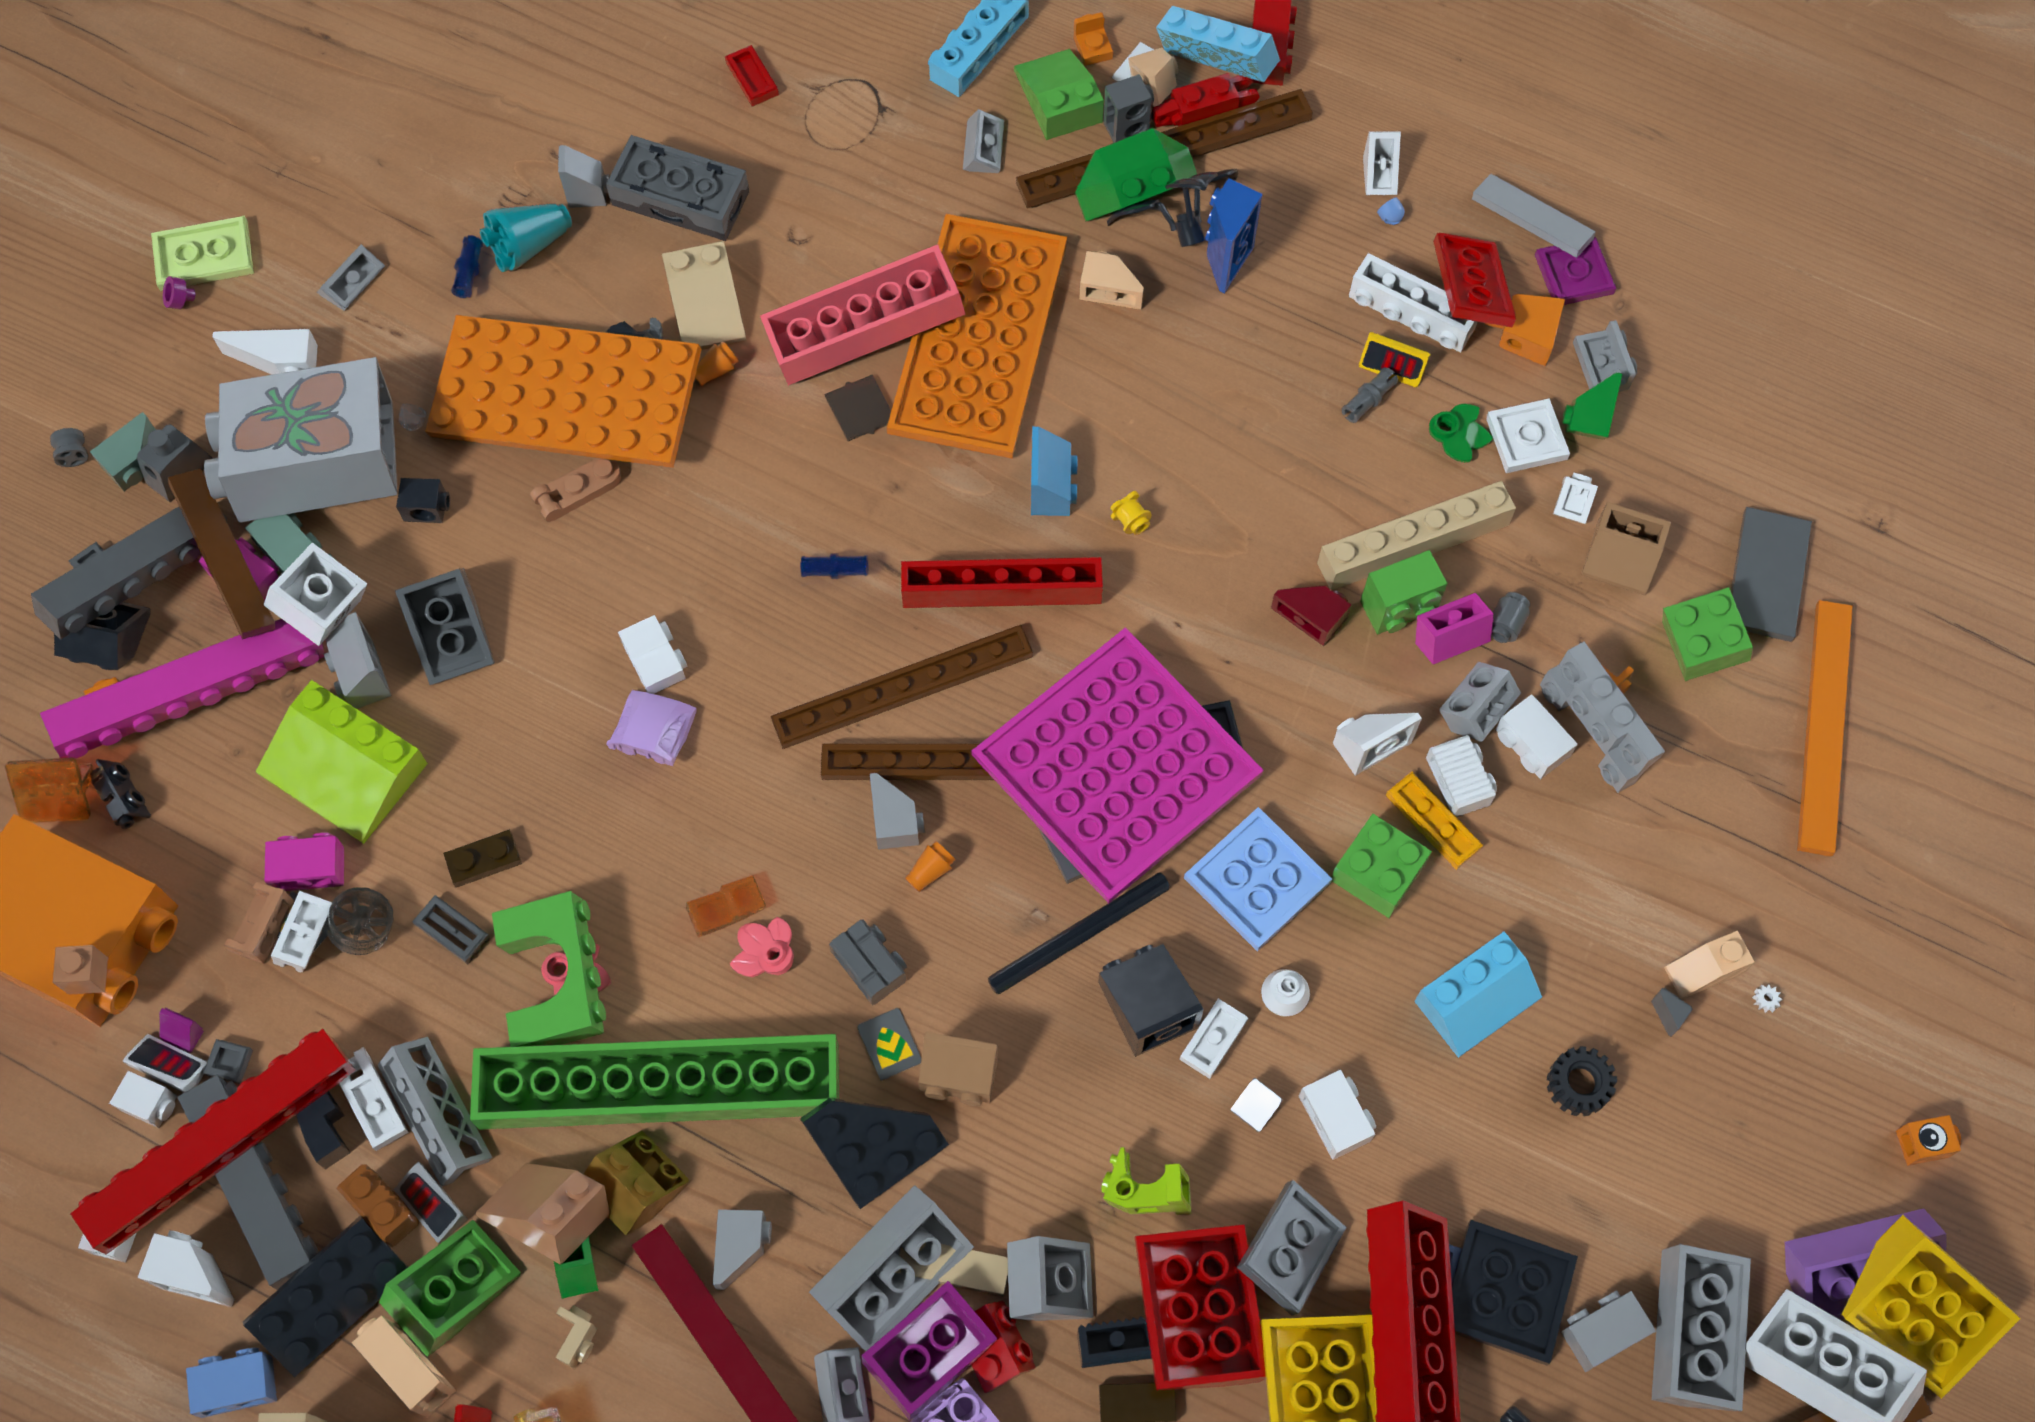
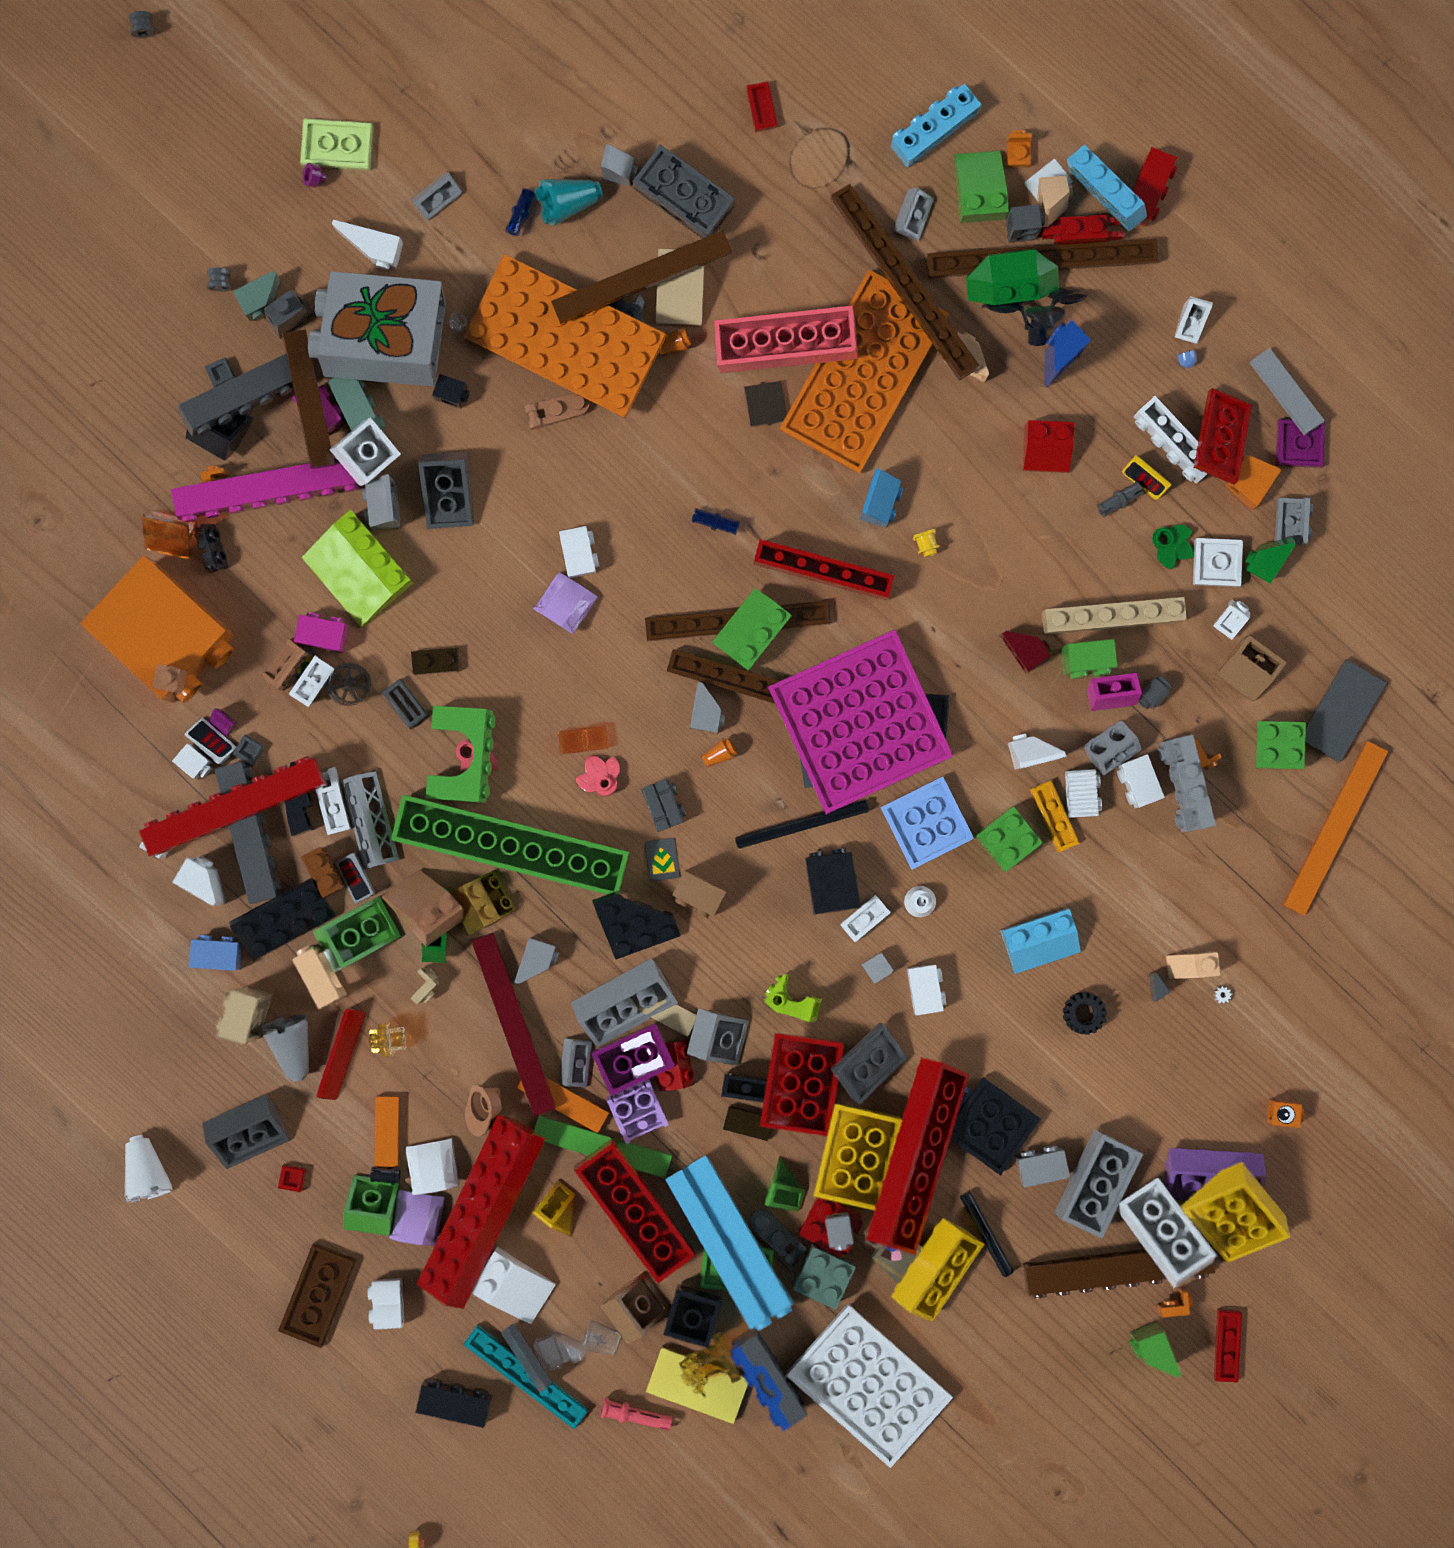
camera: 20 degrees right, 20 degrees up
(646, 287) = (641, 277): none -> reddish brown tile
(927, 685) = (751, 629): none -> bright green slope
(1000, 213) = (904, 282): none -> reddish brown plate
(1251, 355) = (1048, 446): none -> red slope

